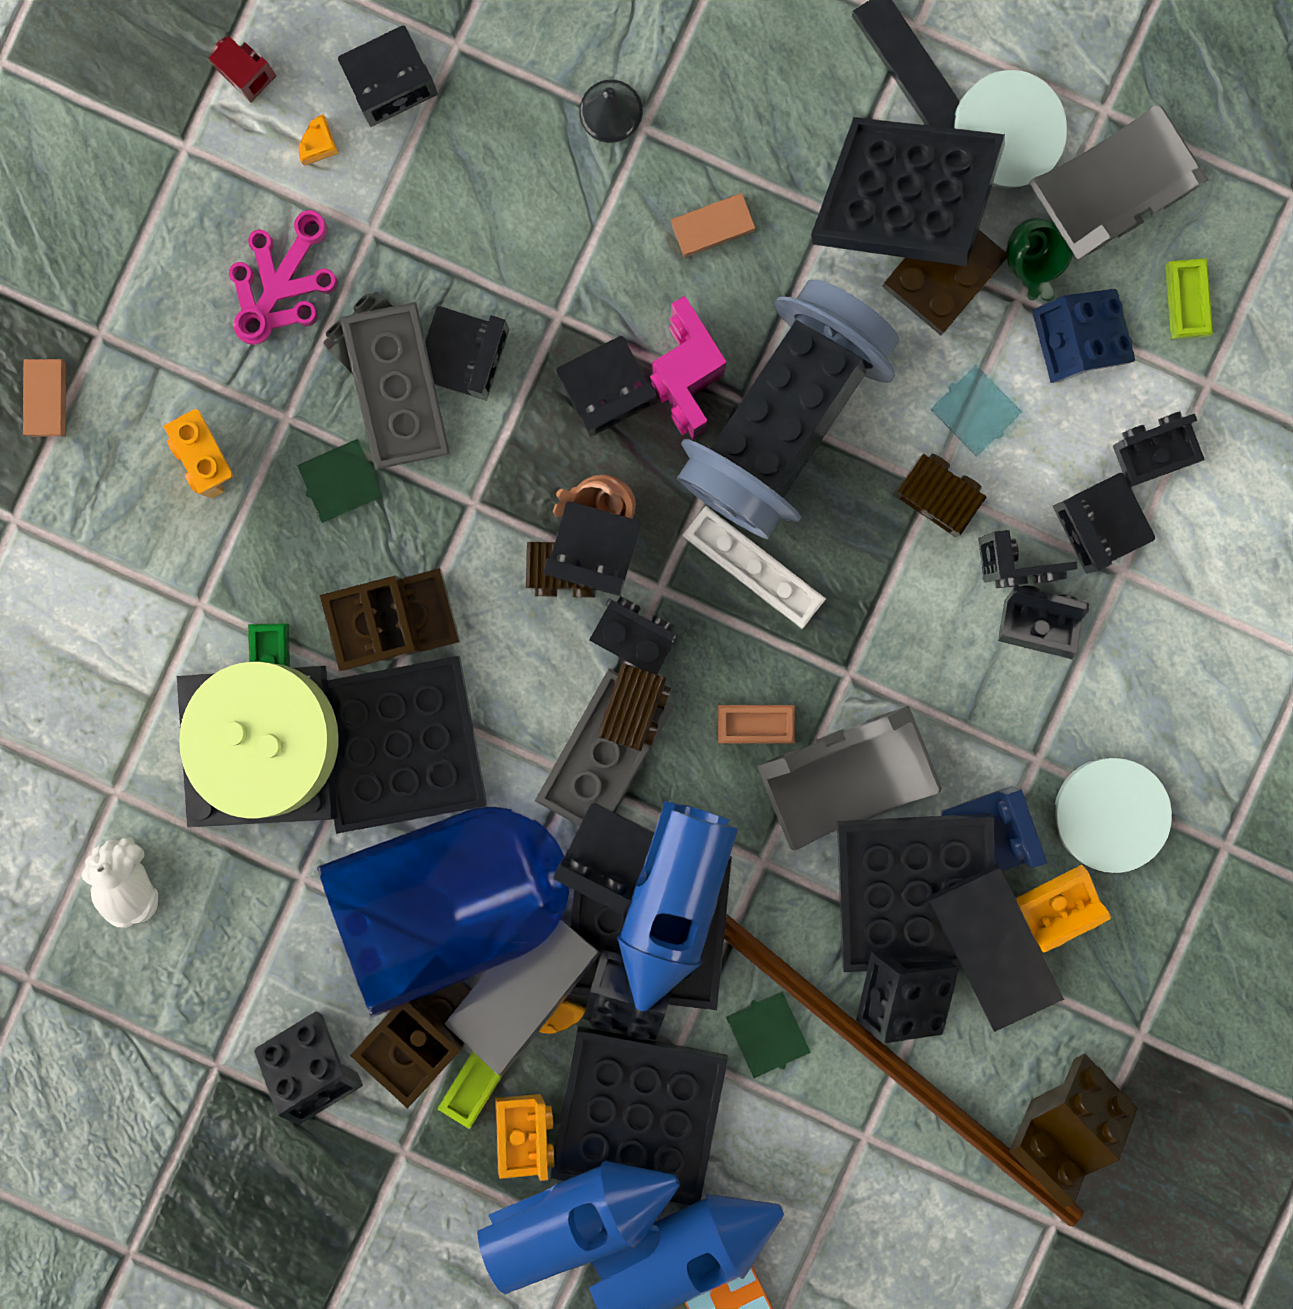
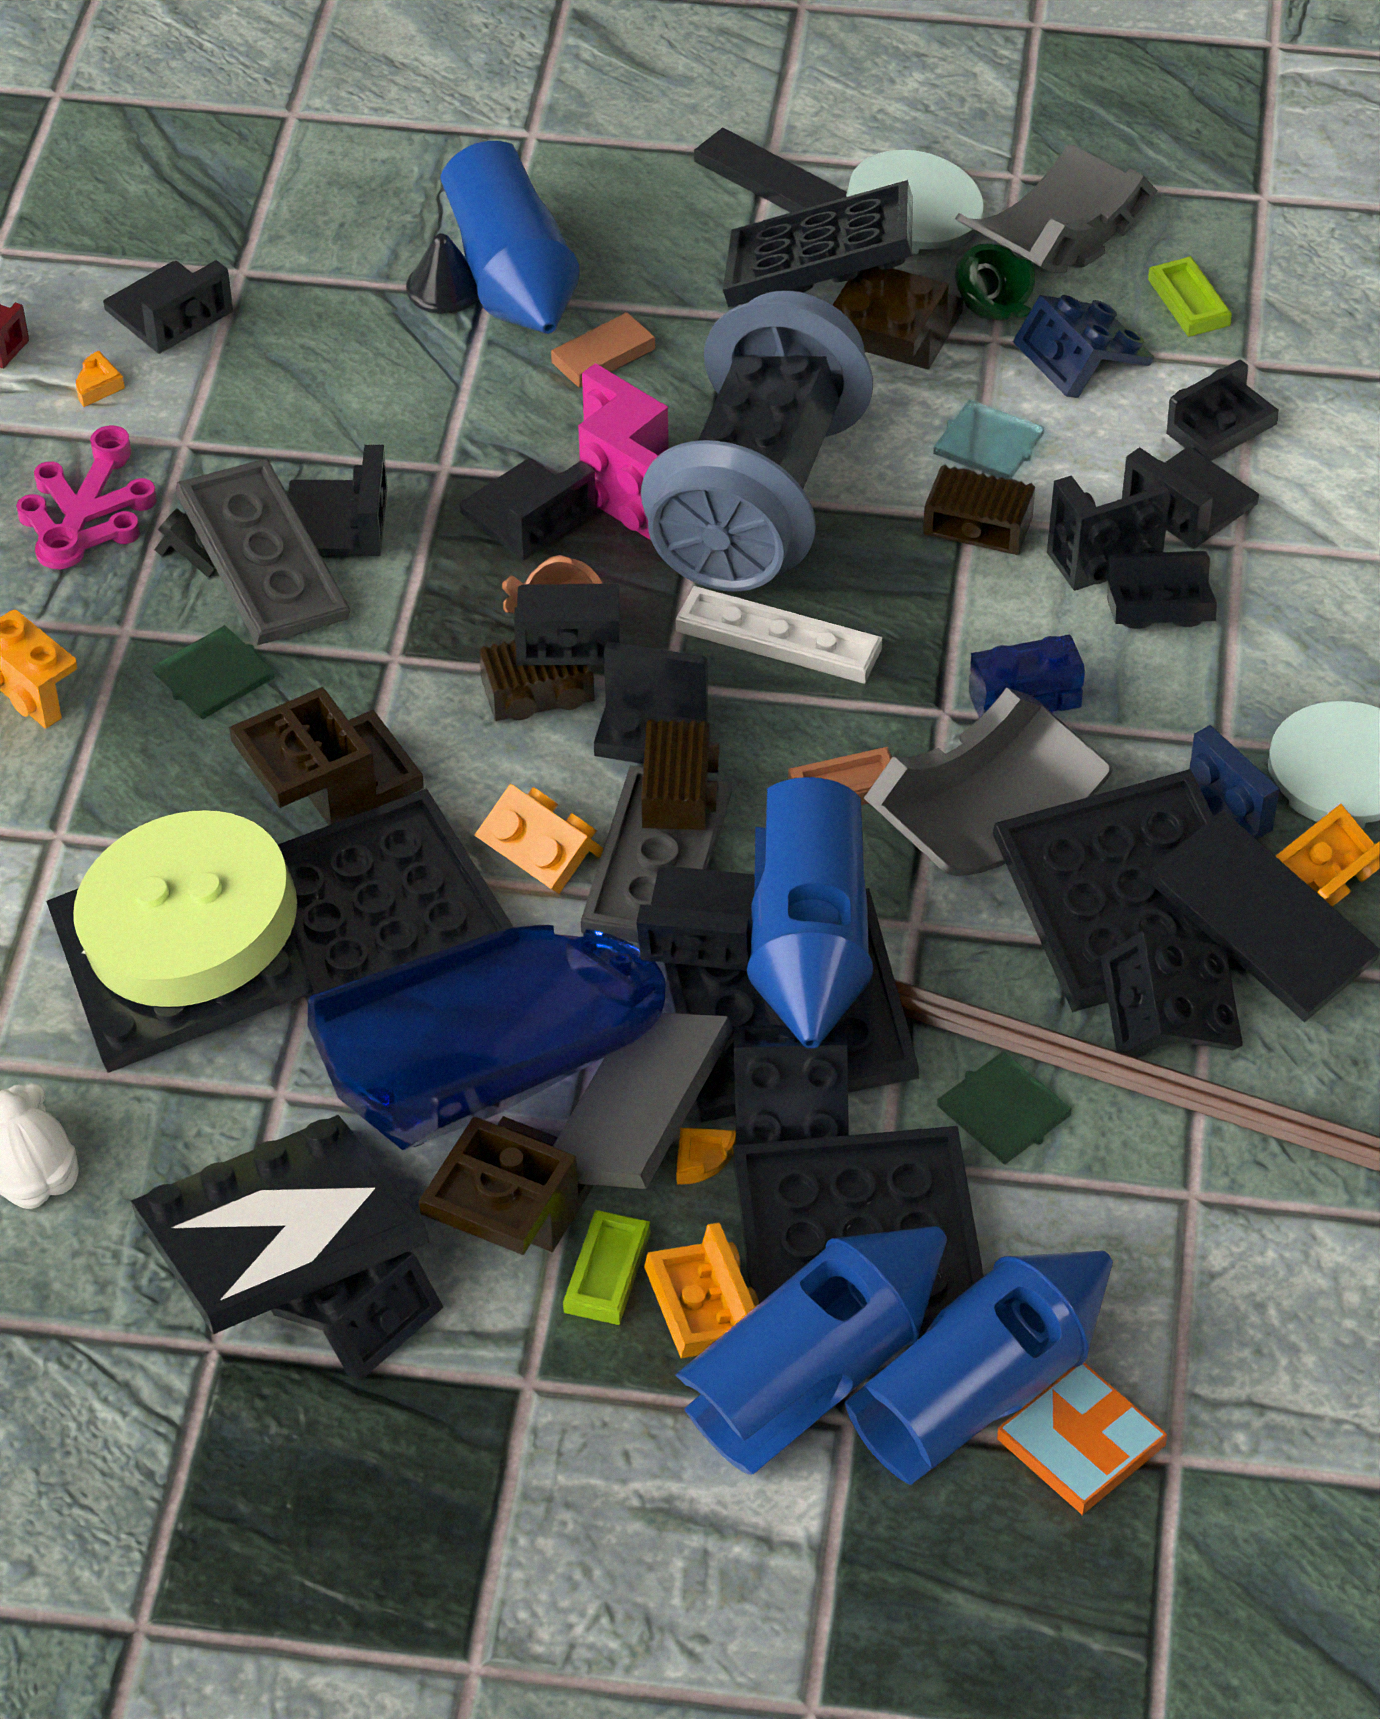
camera: 20 degrees left, 40 degrees down
(267, 1011) = (278, 1223): none -> black plate
(527, 717) = (536, 838): none -> light orange bracket
(667, 101) = (509, 237): none -> blue piece
(913, 680) = (1042, 668): none -> clear blue brick

